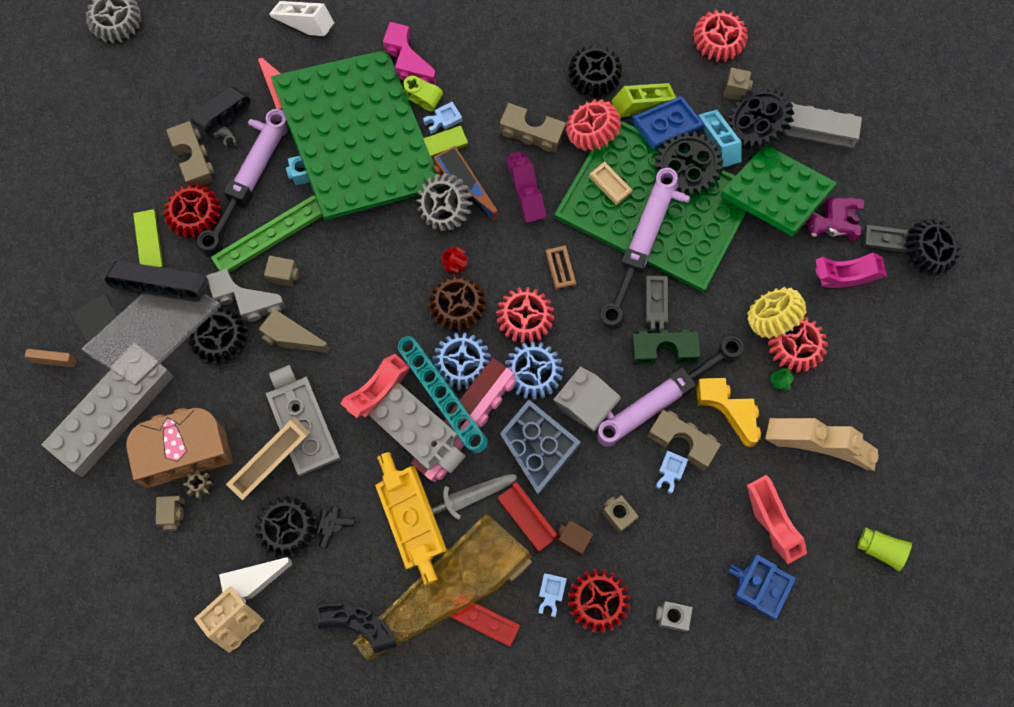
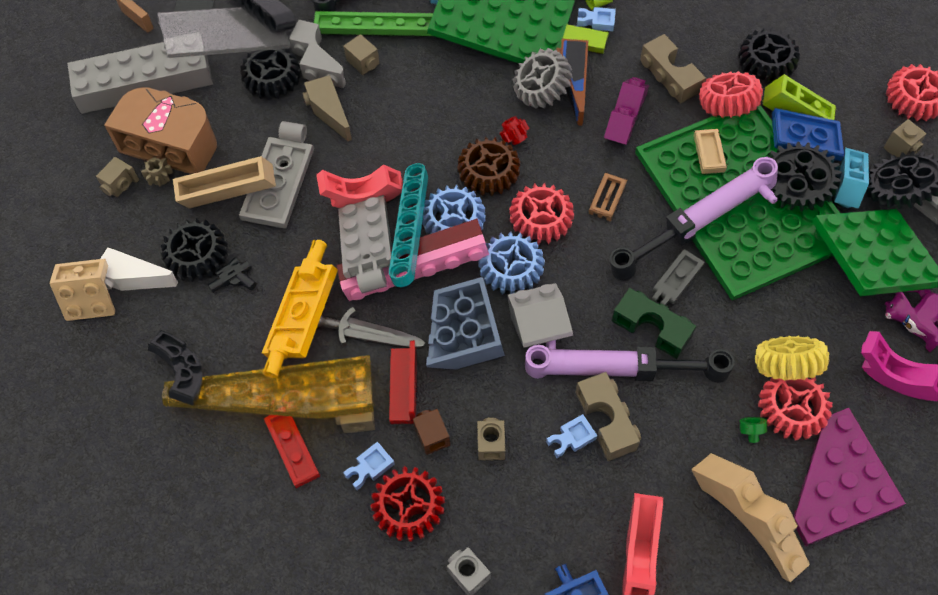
camera: 40 degrees right, 10 degrees down
(738, 412) = (683, 426): yellow arch -> none
(861, 375) = (843, 482): none -> magenta plate

